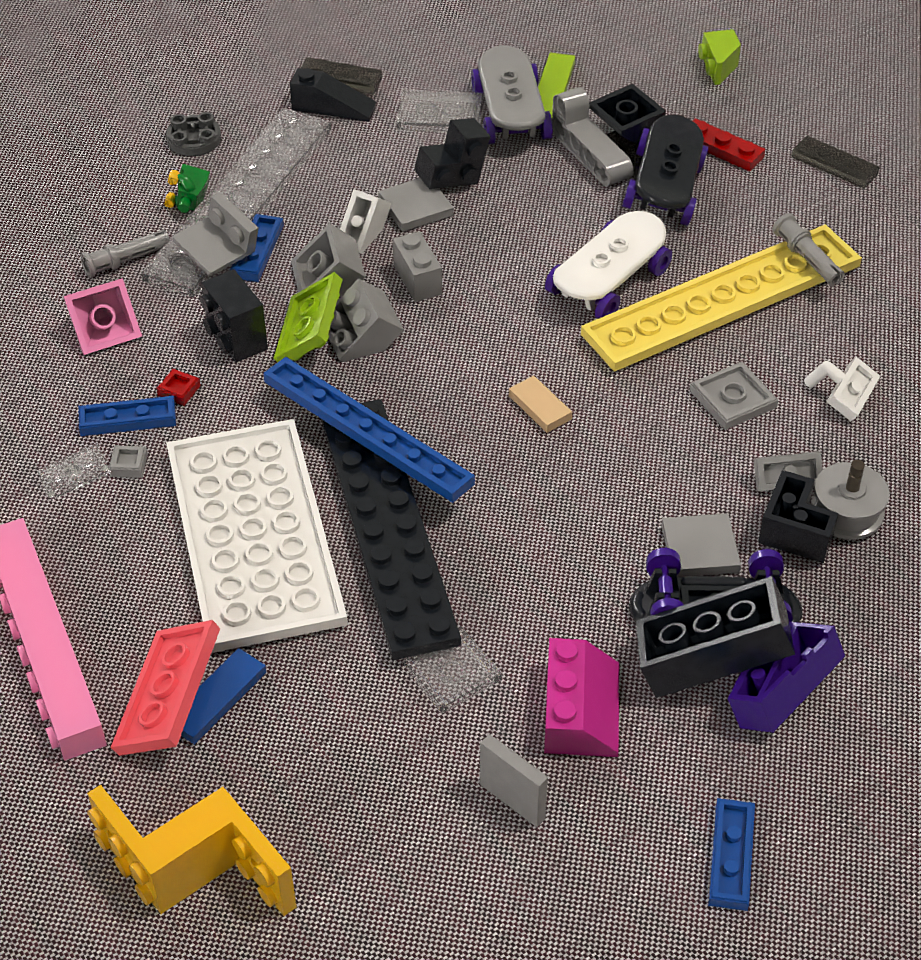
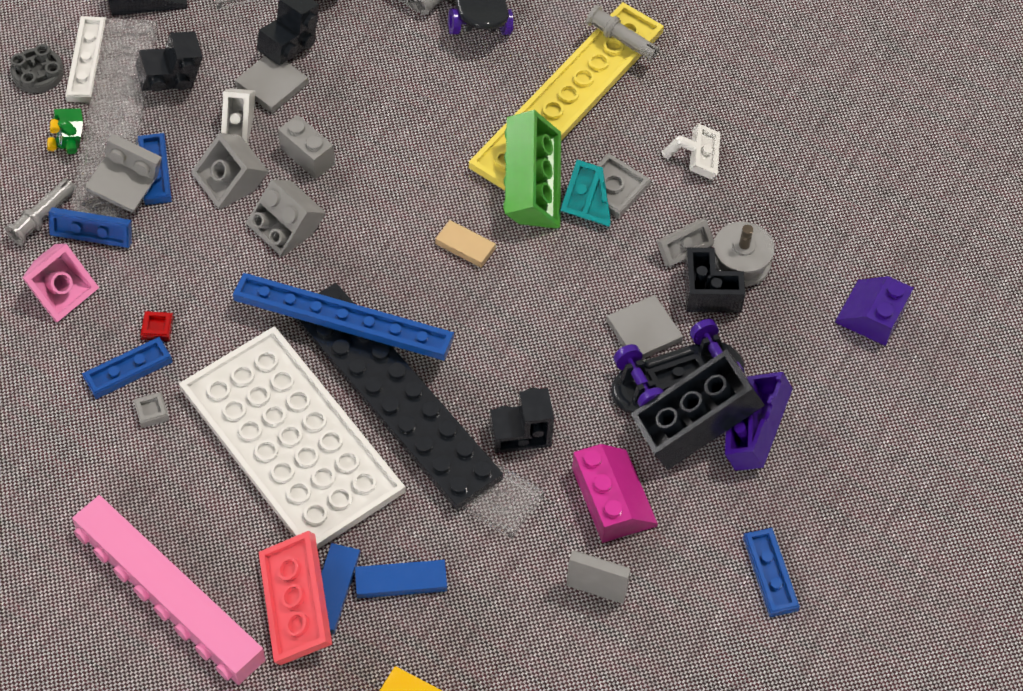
camera: 25 degrees left, 10 degrees up
(73, 471) = (112, 435): clear plate -> none
(162, 278) = (90, 227): none -> blue tile
(234, 316) = (178, 246): black brick -> none
(242, 137) = (85, 59): none -> white tile
(295, 711) = (400, 579): none -> blue tile
(309, 318) = (241, 228): lime plate -> none
(315, 159) = (170, 67): none -> black brick
(510, 597) = (523, 425): none -> black brick
(610, 260) = (467, 92): white piece -> none
(645, 350) = (532, 170): none -> bright green slope
(696, 391) = (587, 194): none -> teal wing

